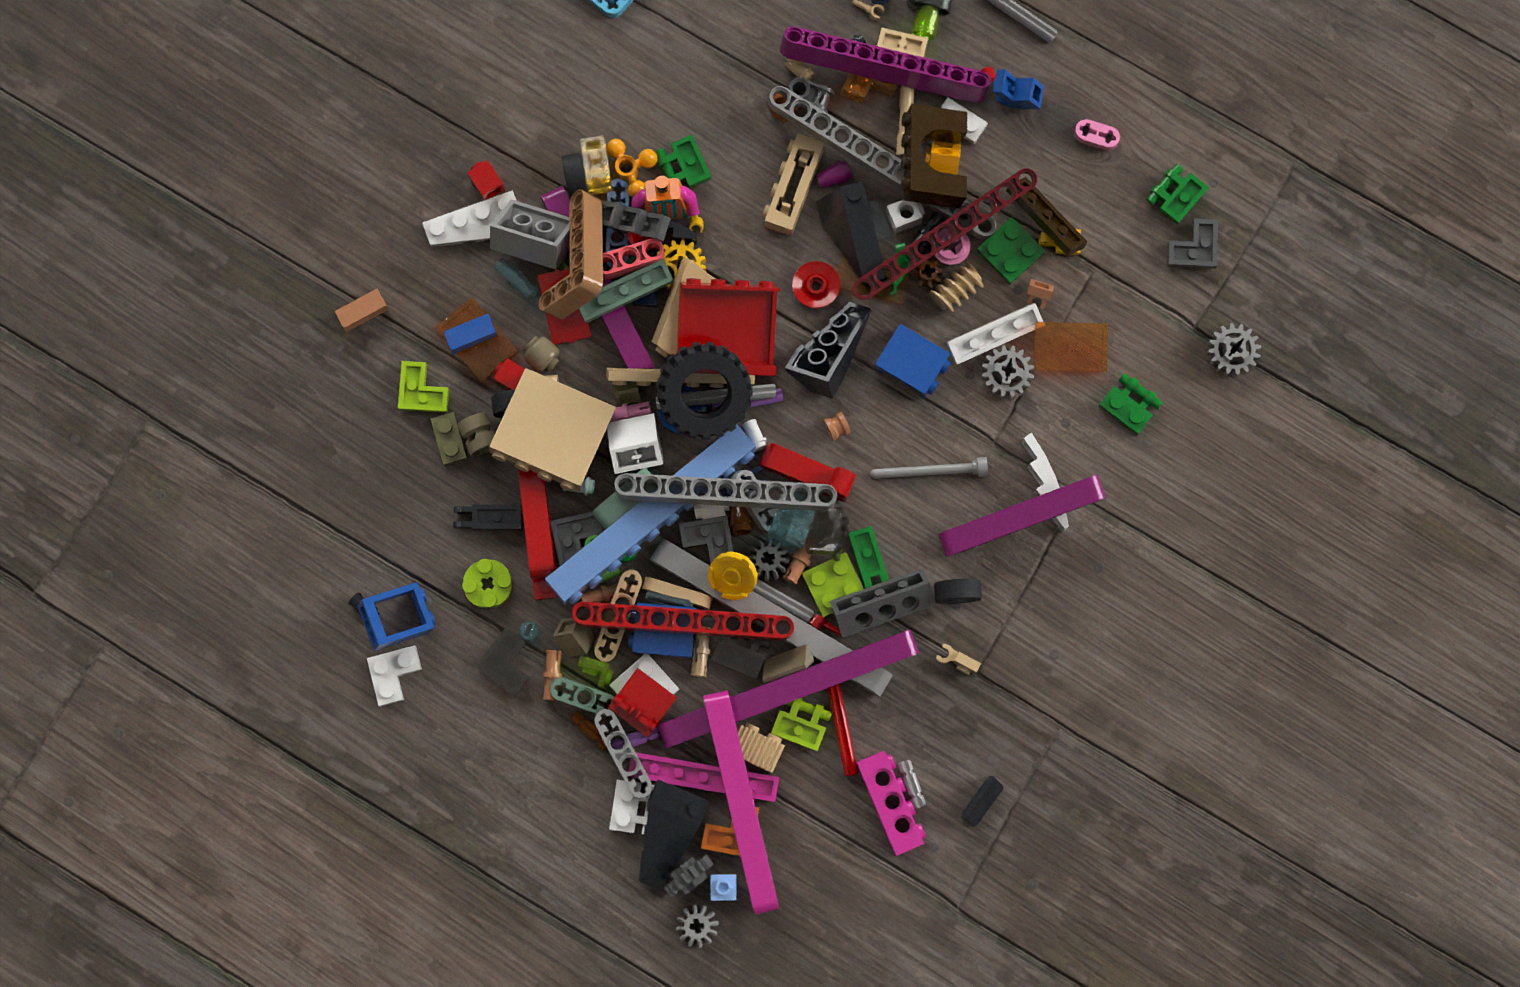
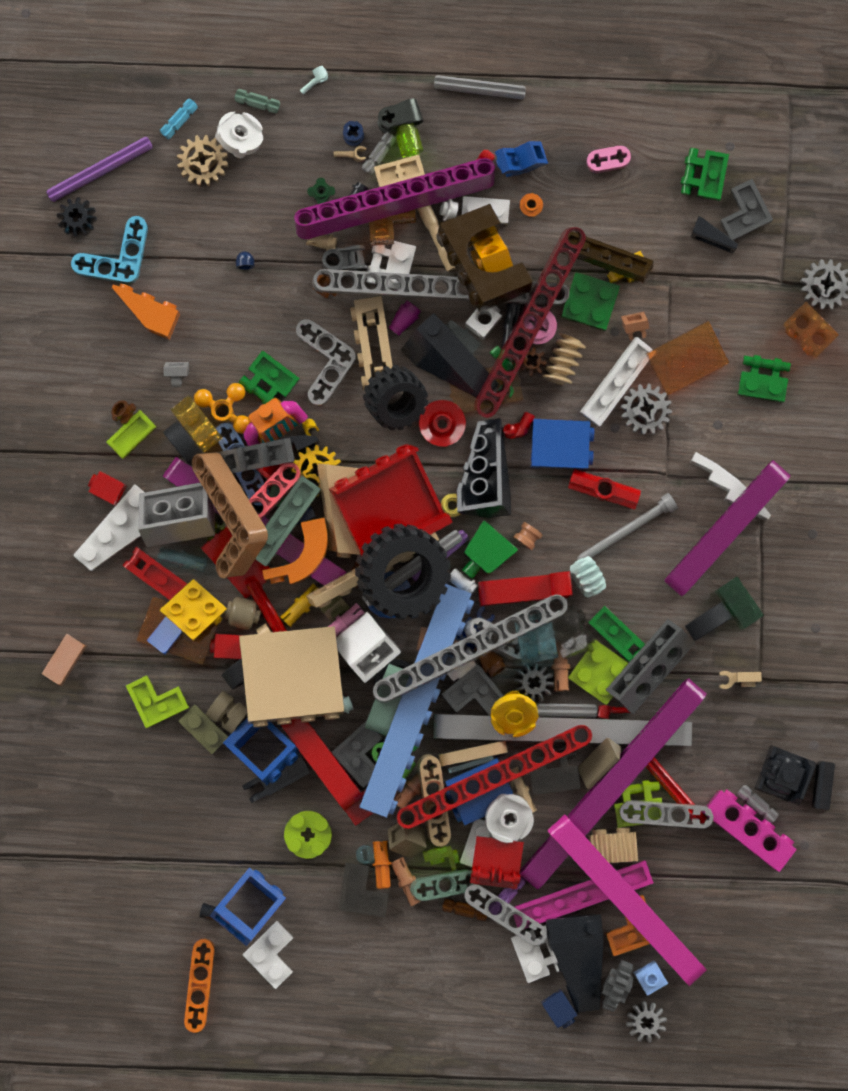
camera: 30 degrees left, 5 degrees up
(309, 662) = (199, 985): none -> orange beam
(485, 281) = (155, 574): none -> red plate
(487, 507) = (273, 771): none -> blue window
(499, 326) = (193, 610): none -> yellow hinge
(534, 146) = (131, 434): none -> lime tile
(538, 122) = (122, 411): none -> reddish brown plate
(538, 647) = (381, 864): none -> orange axle
(566, 357) = (265, 606): none -> red axle
(593, 378) = (299, 607): none -> yellow pin
(605, 113) = (176, 371): none -> light grey tile
(614, 55) = (154, 316): none -> orange slope
(624, 869) = (559, 1009): none -> dark blue brick
(629, 336) = (313, 554): none -> orange arch
(676, 681) = (514, 830): none -> white plate
(721, 50) = (244, 261): none -> dark blue hinge
(749, 181) = (333, 364): none -> light grey beam
(782, 355) = (444, 503): none -> light yellow plate
(786, 254) = (404, 410): none -> black tyre
(792, 419) = (487, 551): none -> green torso
(820, 746) = (666, 817): none -> light grey beam
(826, 20) = (321, 185): none -> dark green plate
(860, 120) = (399, 261): none -> white plate
(870, 491) = (588, 577): none -> light aqua gear
(883, 328) = (519, 429): none -> red arm
(894, 20) = (378, 153): none -> light grey axle
(929, 100) = (449, 209): none -> white plate
(940, 434) = (619, 495): none -> red piece
(951, 772) = (785, 775): none -> black brick
(996, 591) = (739, 603): none -> clear green brick
(1004, 144) = (528, 211): none -> orange plate
(1150, 247) = (708, 234): none -> black slope
(1204, 381) = (815, 325): none -> clear orange brick

